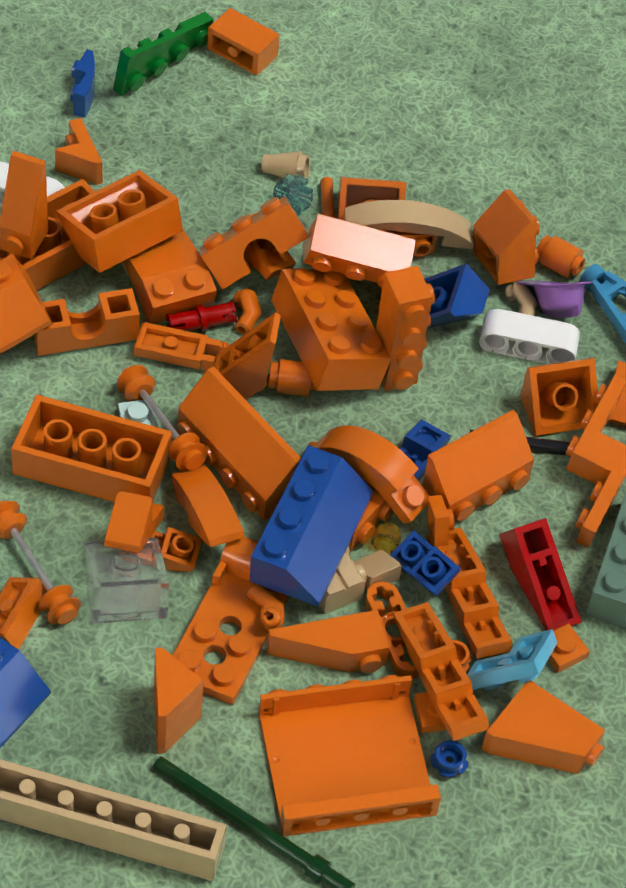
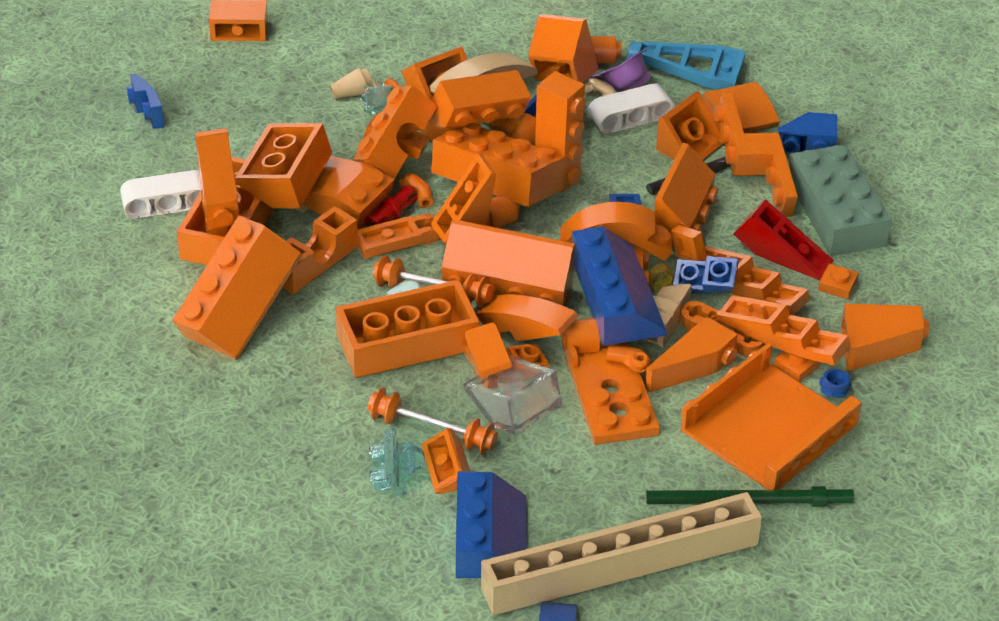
camera: 30 degrees left, 10 degrees down
(79, 155) = (183, 143): orange slope -> none
(155, 56) = (183, 60): green wing -> none
(176, 699) = (622, 442): orange slope -> none
(521, 663) = (829, 294): medium azure plate -> none

